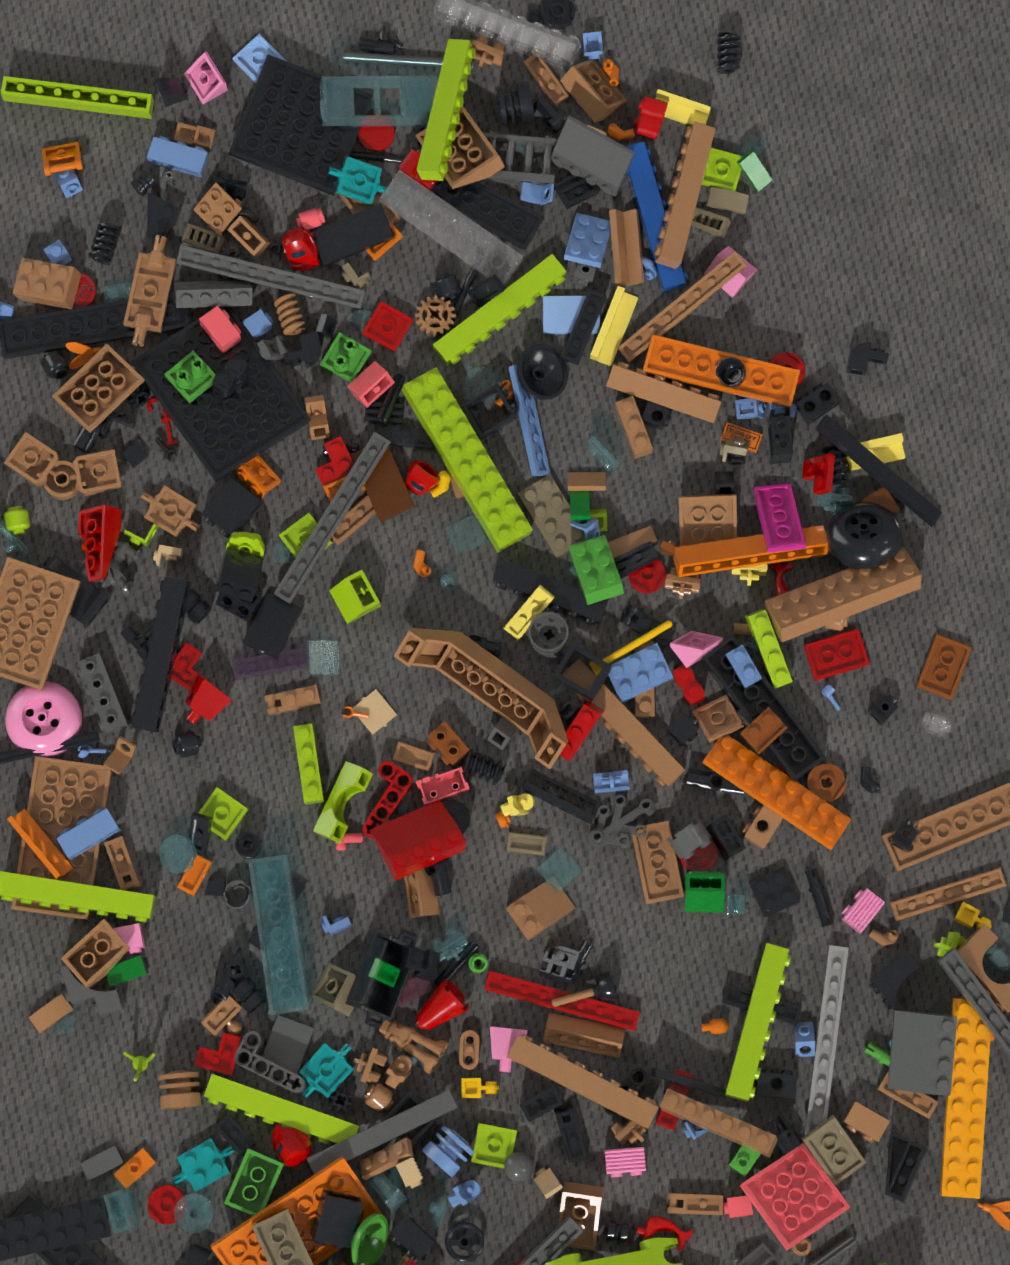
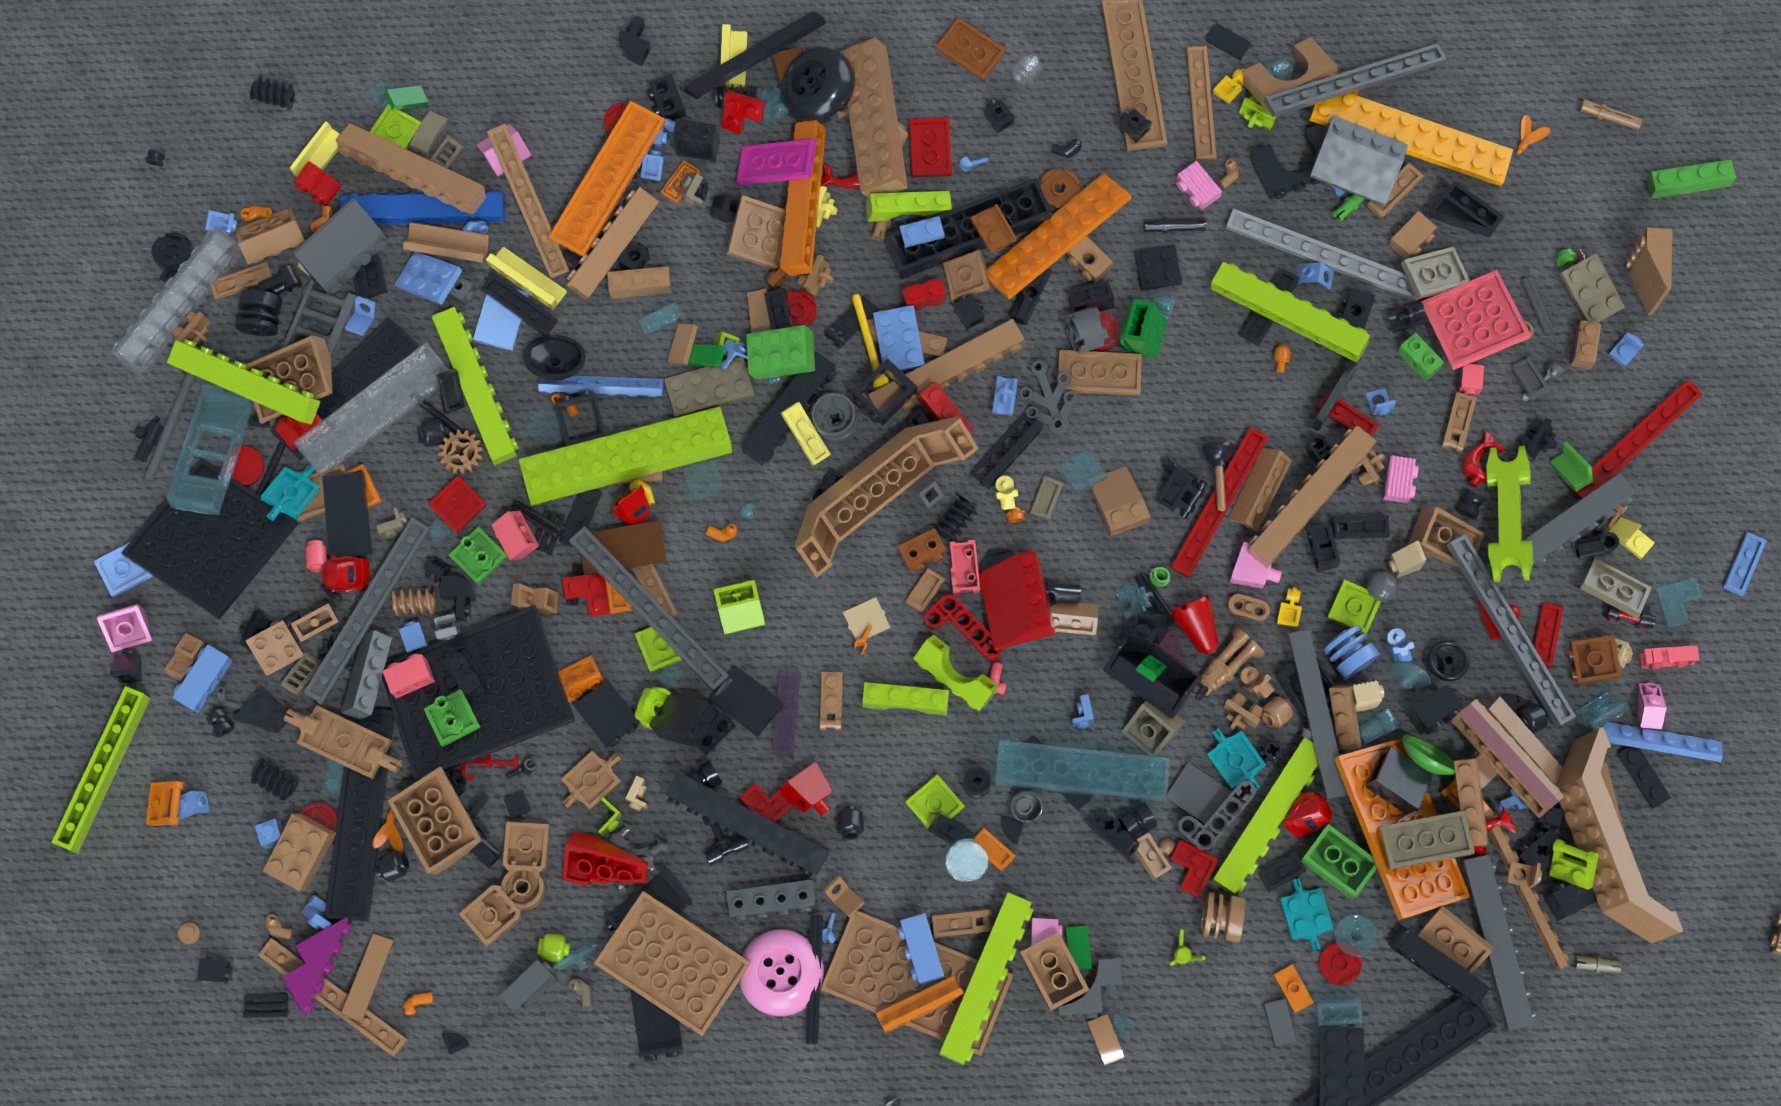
camera: 75 degrees left, 5 degrees down
(323, 657) = (794, 657): clear light blue piece -> none
(693, 646) = (887, 276): bright pink slope -> none
(718, 1122) = (1385, 372): medium nougat brick -> none
(731, 372) = (613, 164): black hair -> none

